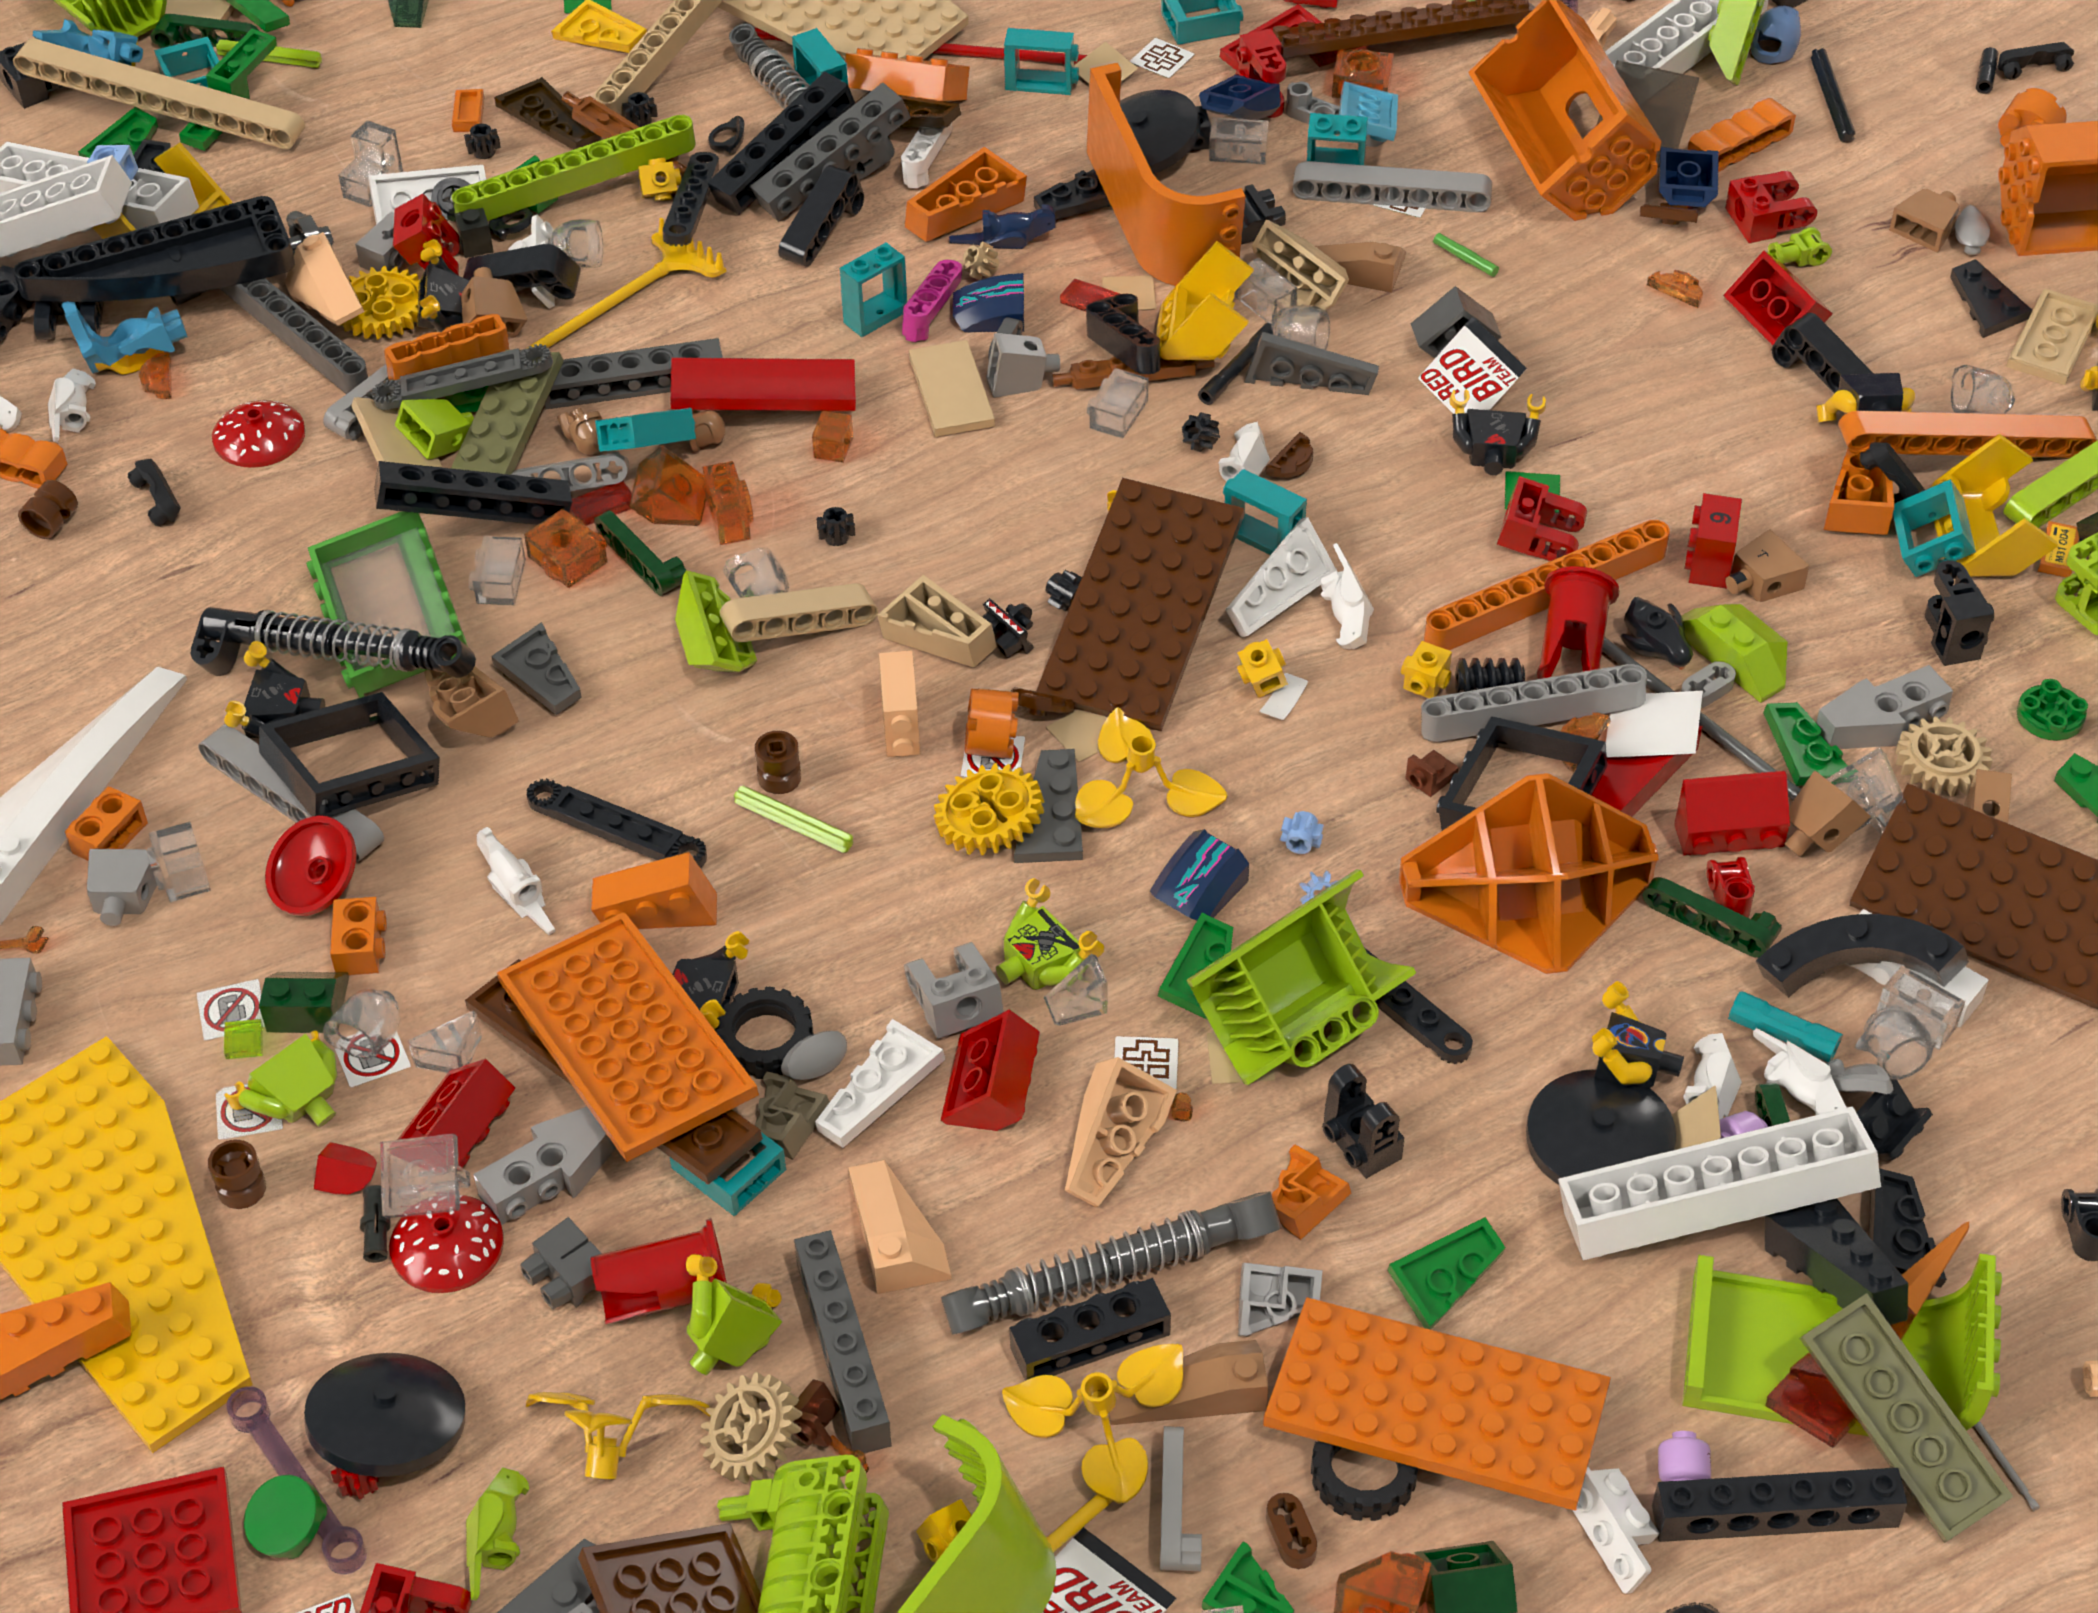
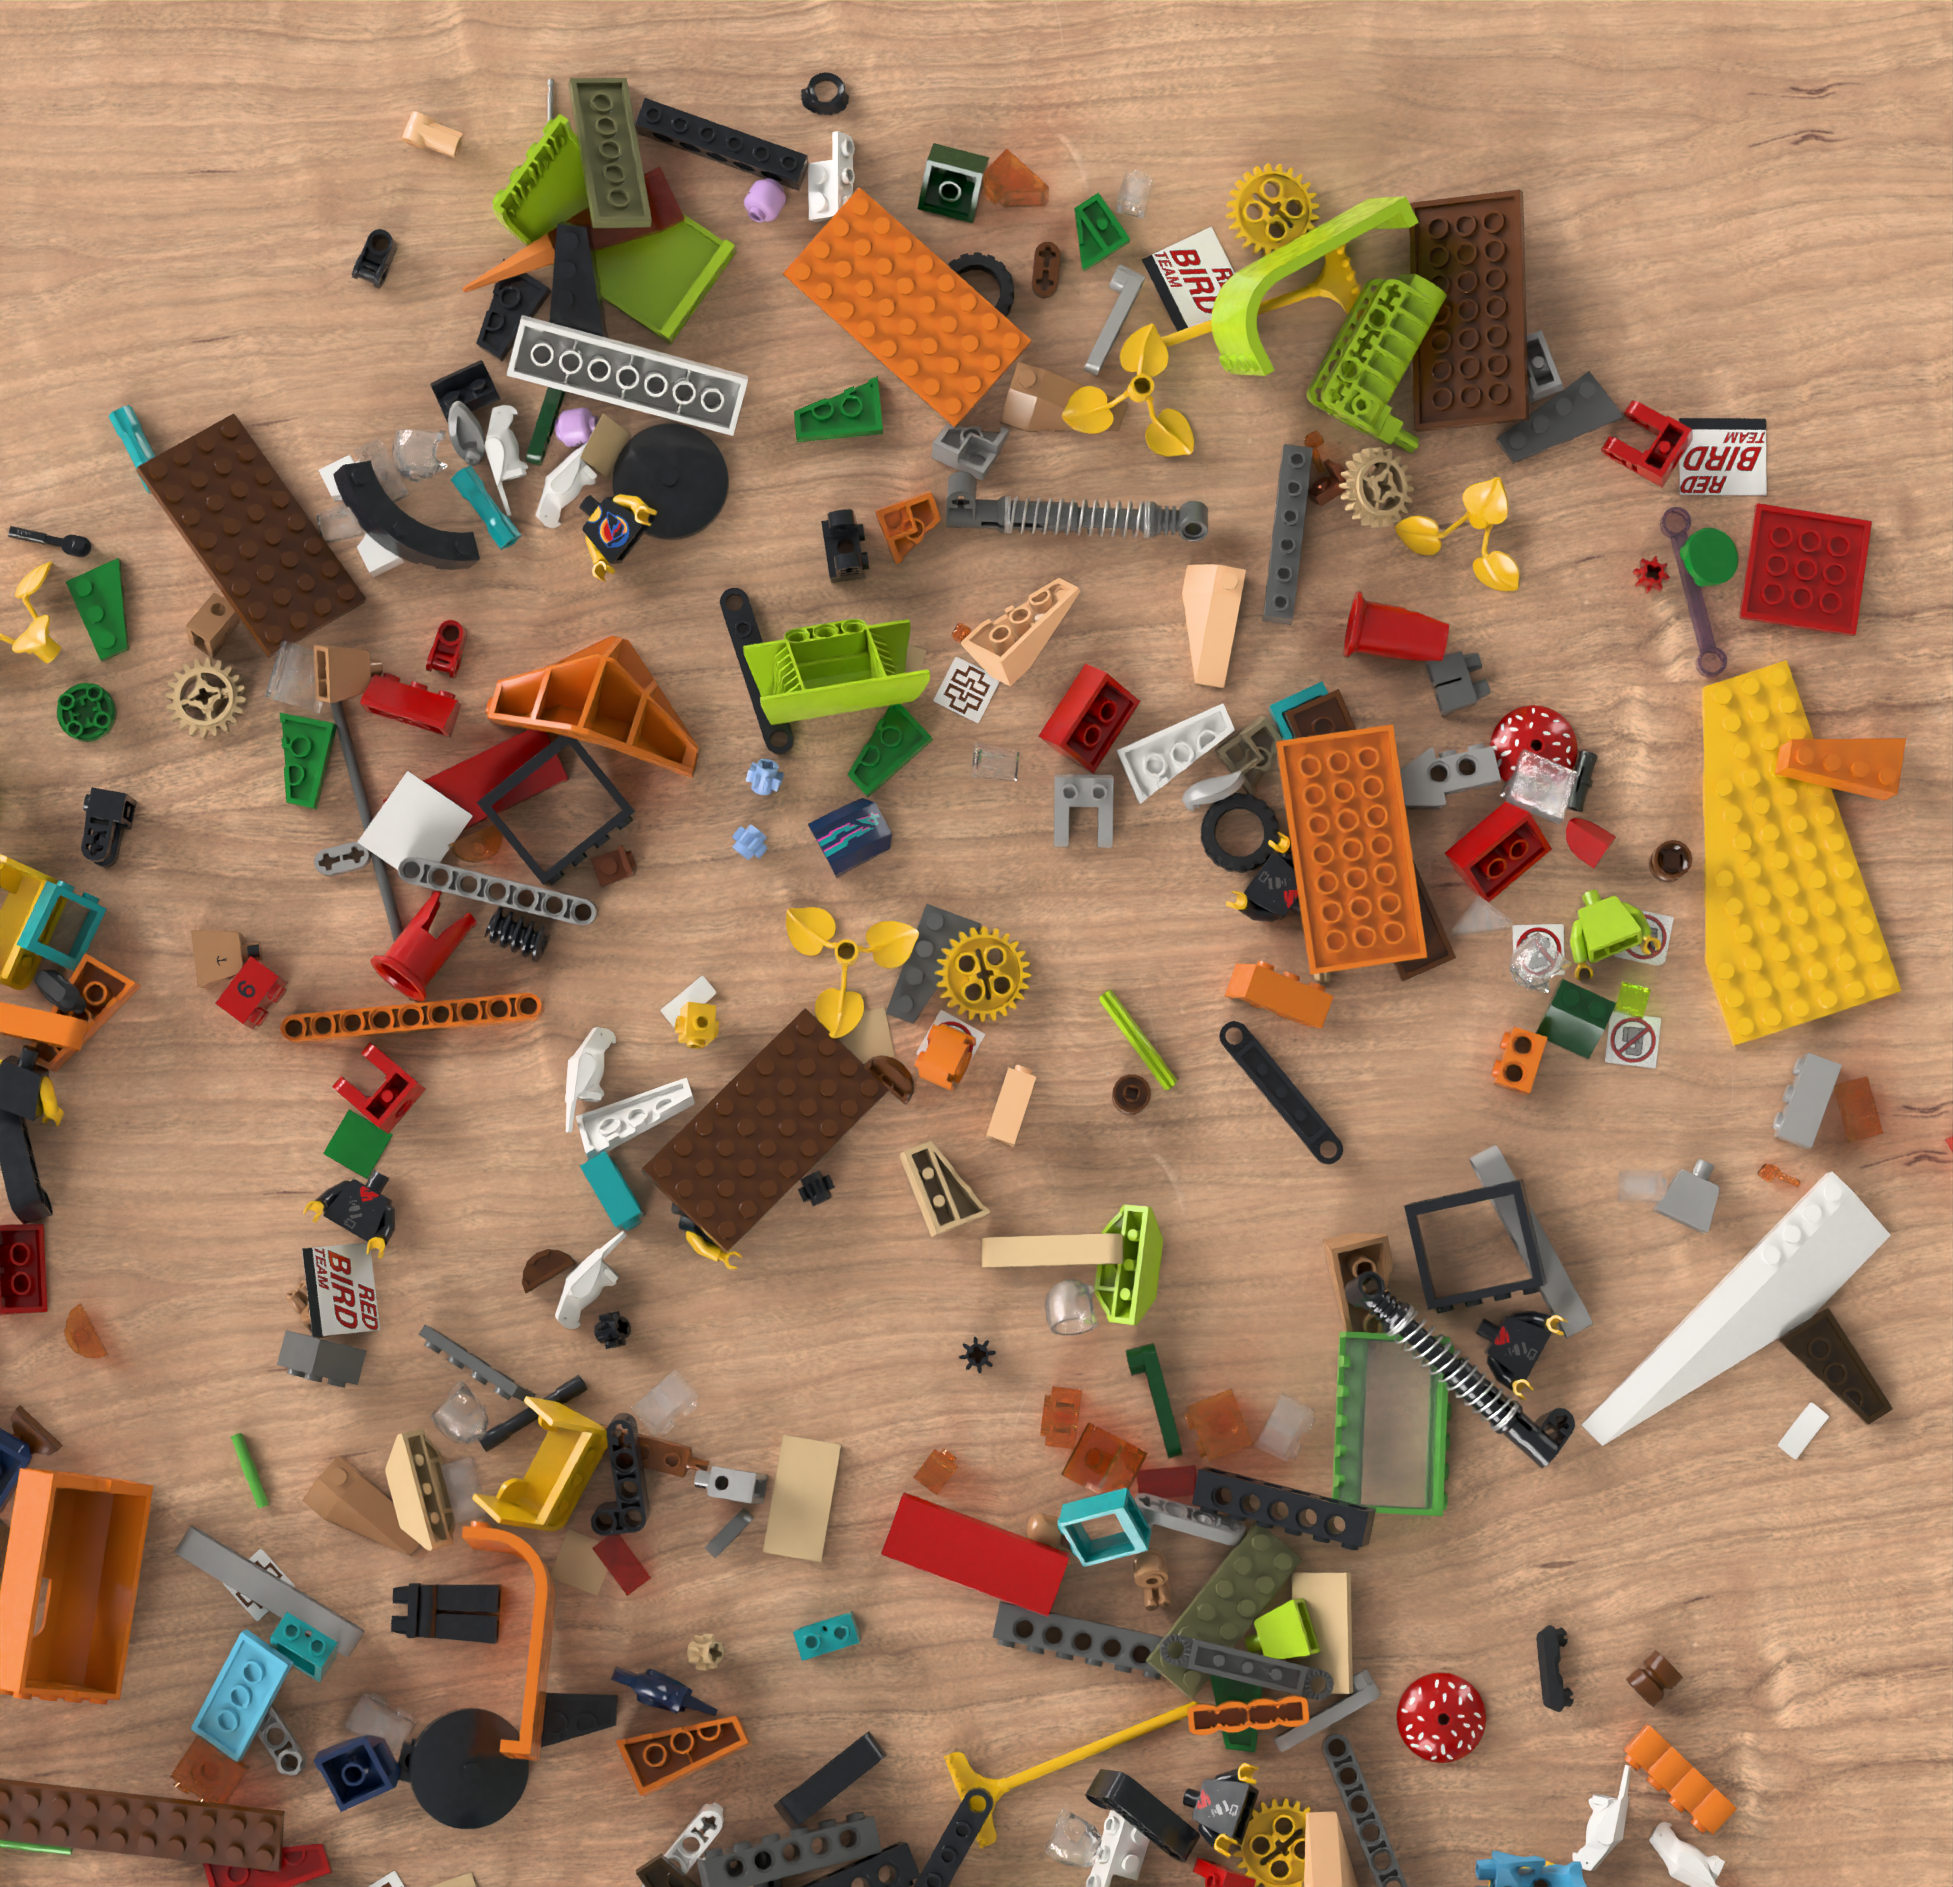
camera: 155 degrees left, 35 degrees up
(107, 823) = (1684, 1260): orange brick -> none
(156, 376) = (1515, 1834): clear orange plate -> none
(310, 865) = (1548, 1137): red dish -> none
(384, 1414) = (1620, 608): black dish -> none
(492, 296) = (1186, 1776): medium nougat torso -> none
(493, 1526) = (1572, 495): lime animal -> none
(514, 880) = (1380, 1064): white animal -> none
(538, 669) = (1286, 1295): dark grey wing -> none
(726, 1320) = (1358, 571): lime torso -> none
(930, 299) = (767, 1624): dark pink beam -> none
(942, 1527) = (1278, 348): yellow brick -> none
(988, 302) = (720, 1593): dark blue slope -> none
(1011, 625) = (879, 1158): black hips -> none
(1040, 946) = (1001, 815): lime torso -> none
(1078, 1346) = (1156, 463): black brick -> none
(1262, 60) = (310, 1814): red brick -> none
(1427, 670) = (570, 972): yellow brick -> none
(1657, 632) = (354, 920): black animal -> none
(1742, 640) = (293, 890): lime wedge -> none
(1755, 933) = (457, 596): dark green beam -> none
(1879, 714) = (248, 766): light grey brick -> none

